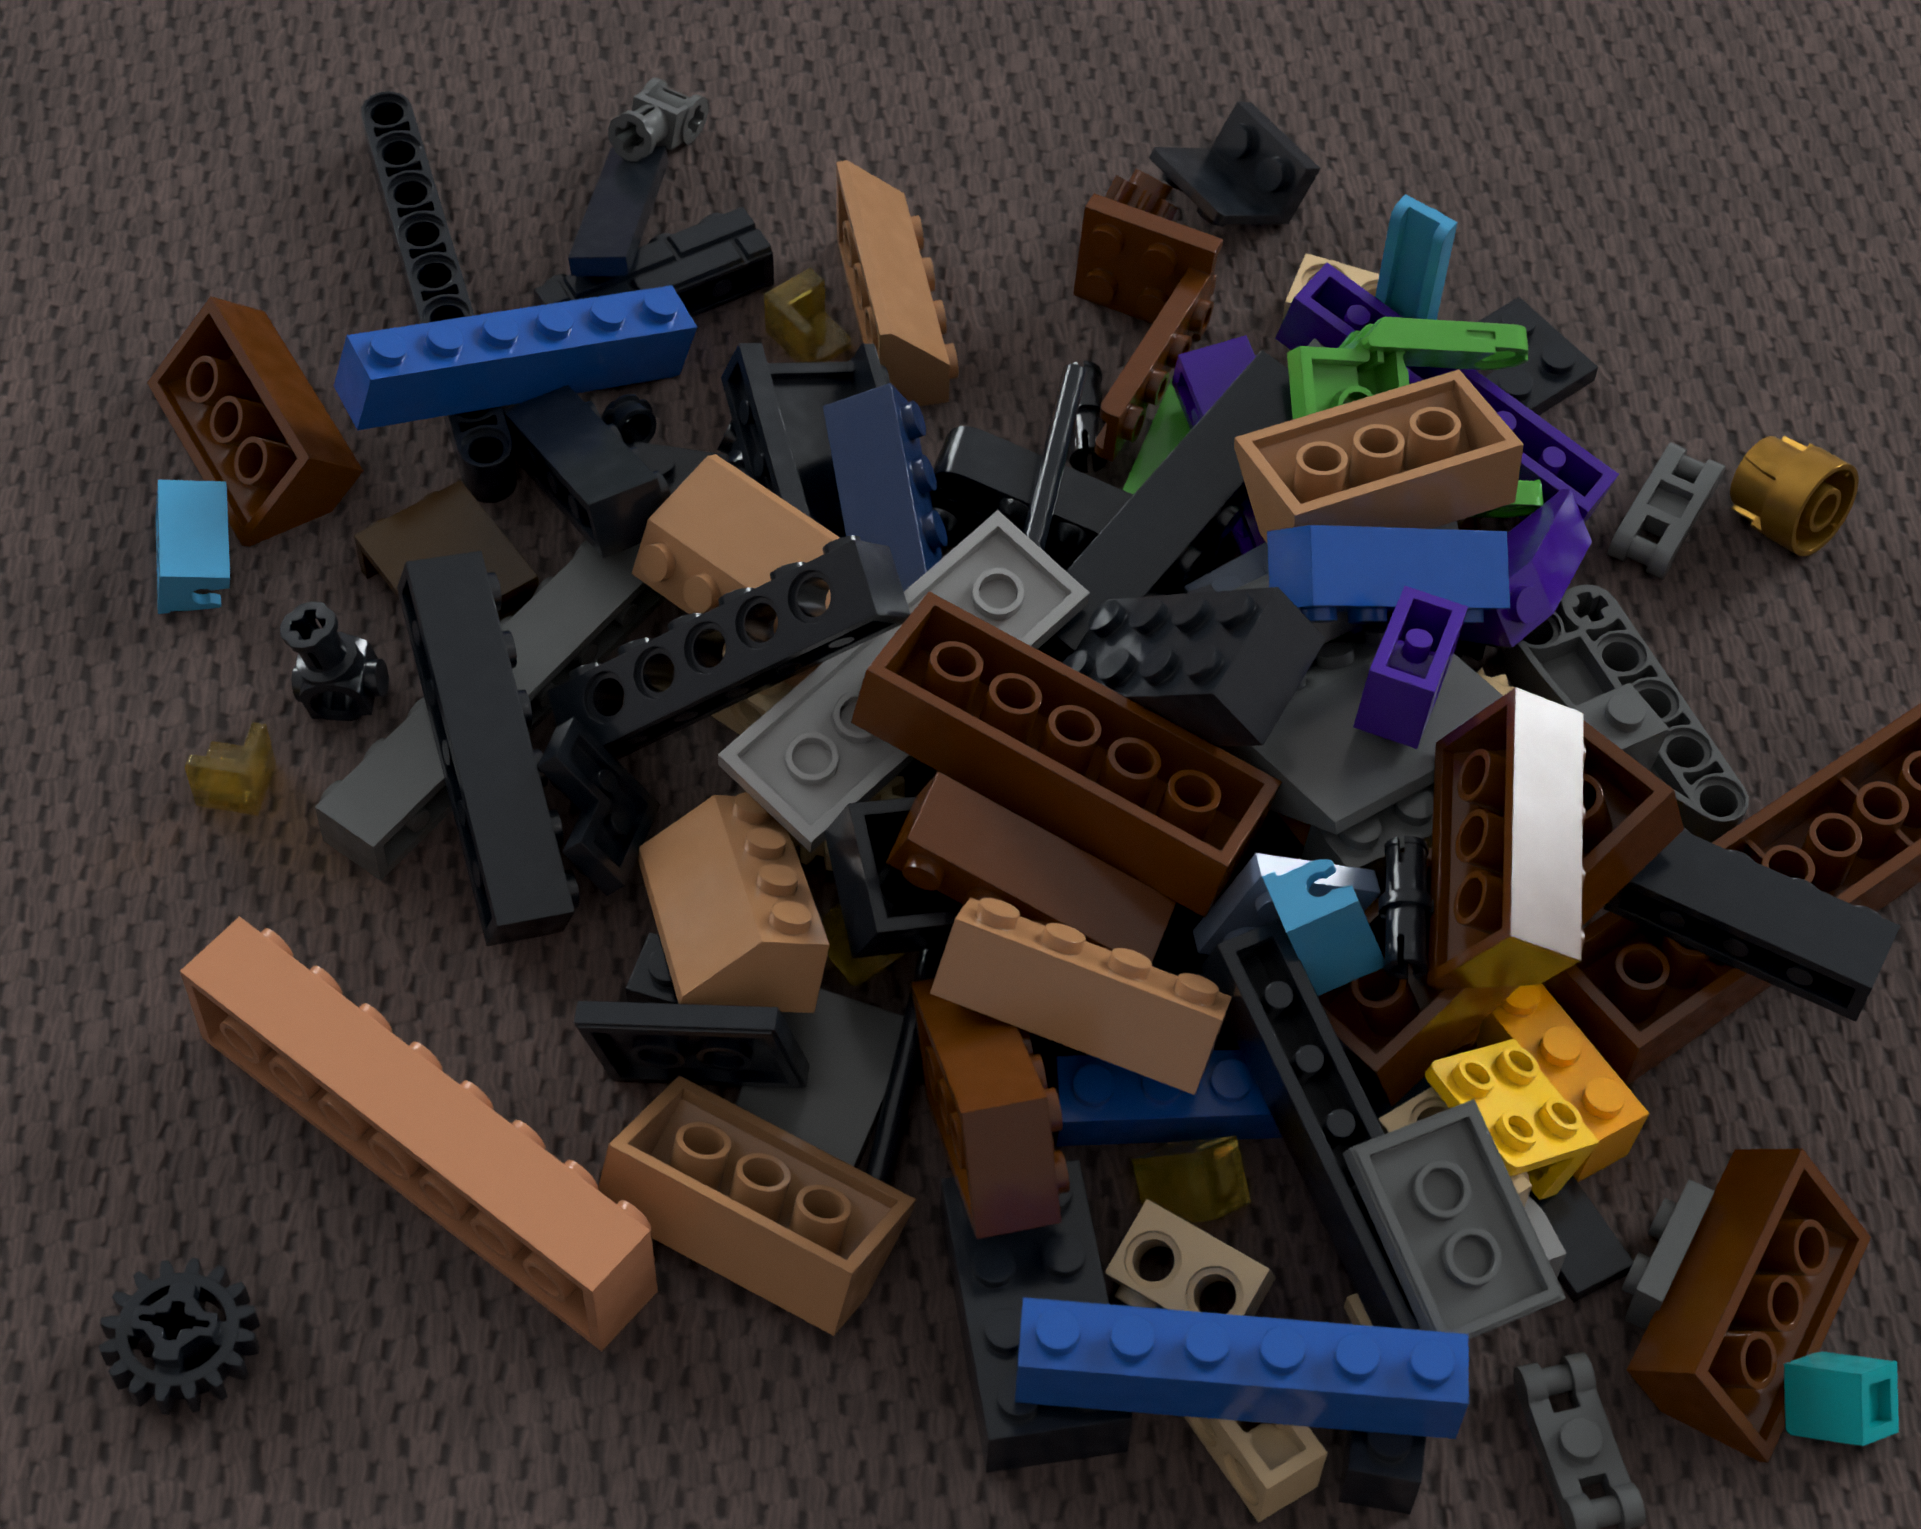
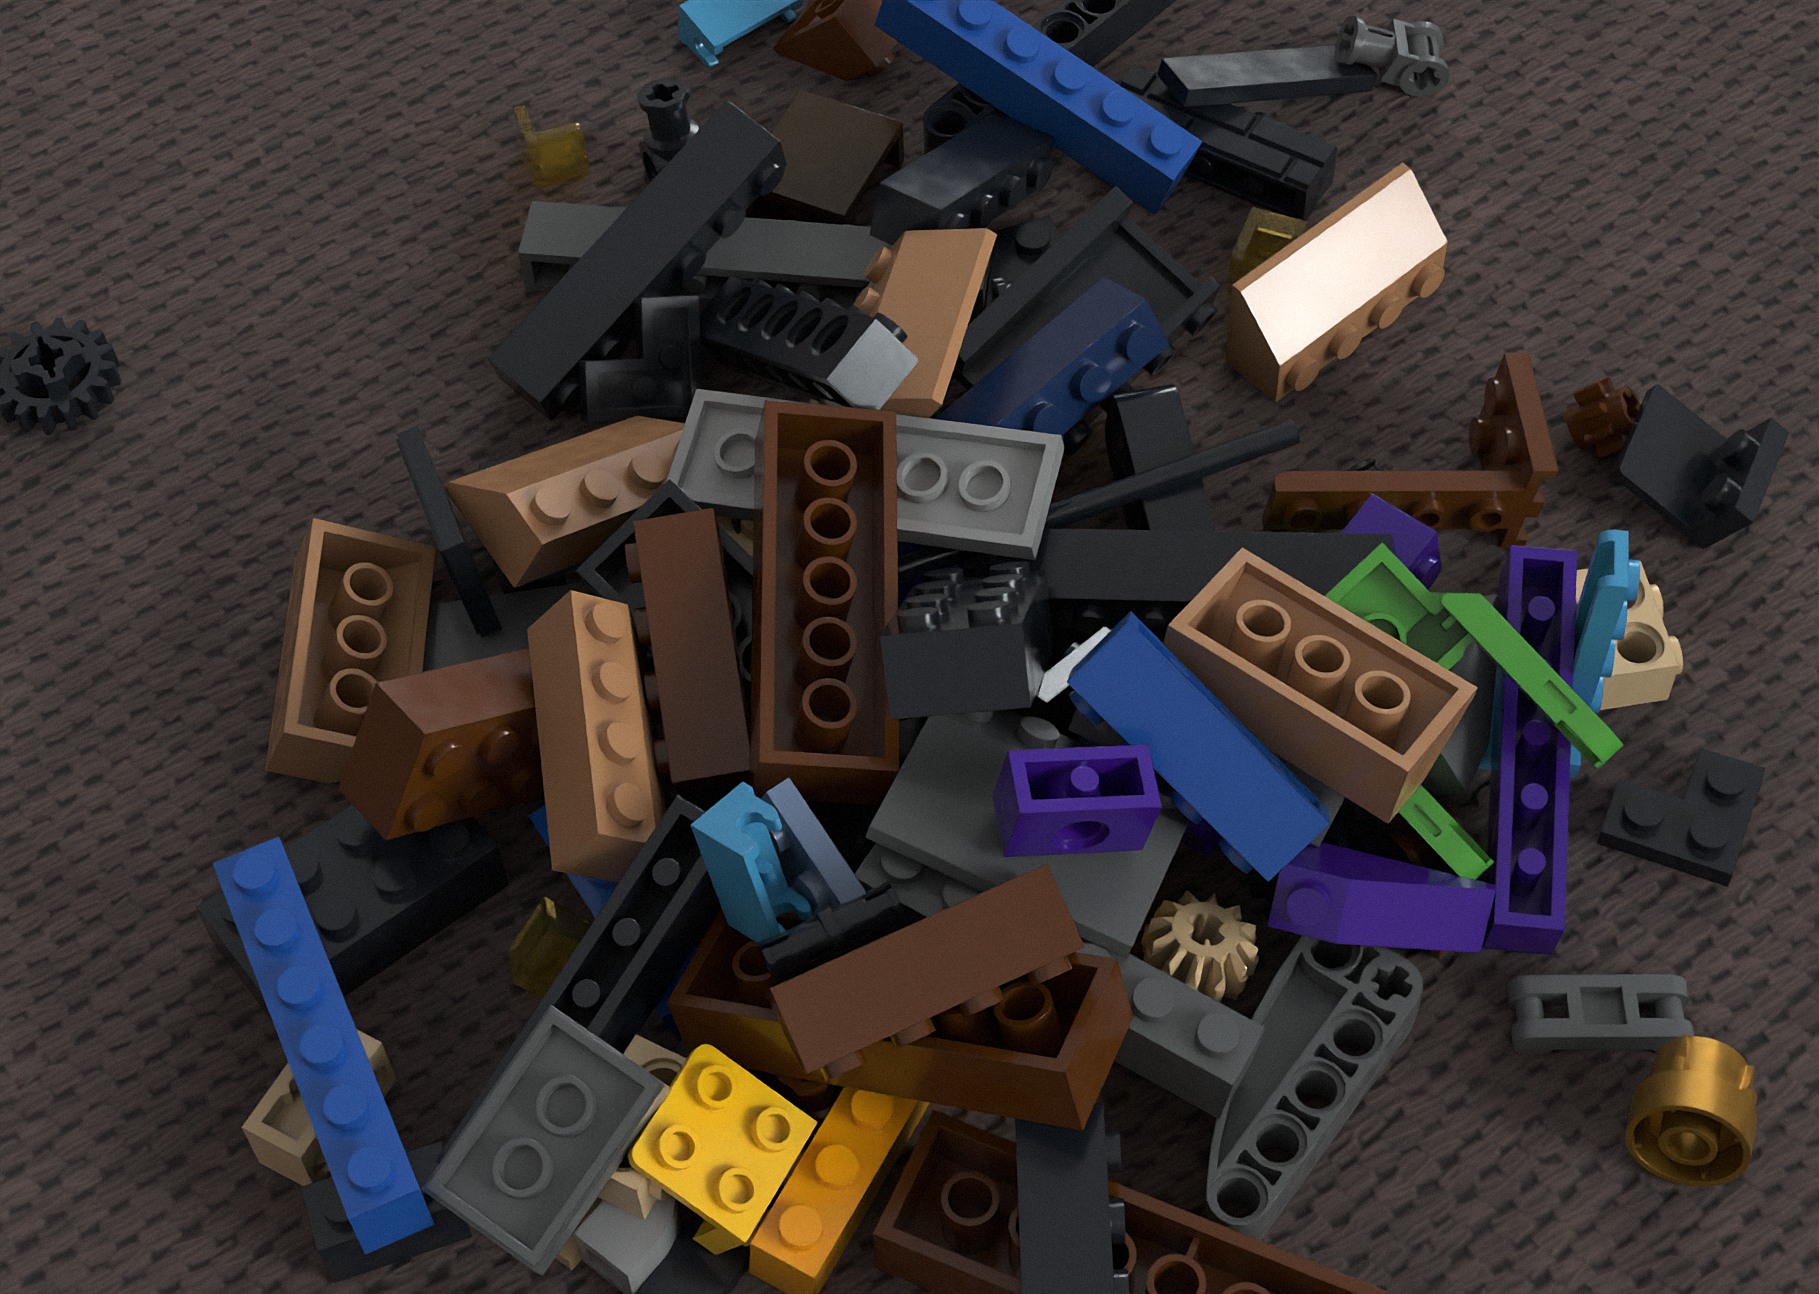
camera: 65 degrees right, 0 degrees up
(424, 1131) = (278, 418): nougat brick -> none
(632, 419) = (1061, 211): black plate -> none
(1197, 1263) = (451, 992): tan brick -> none

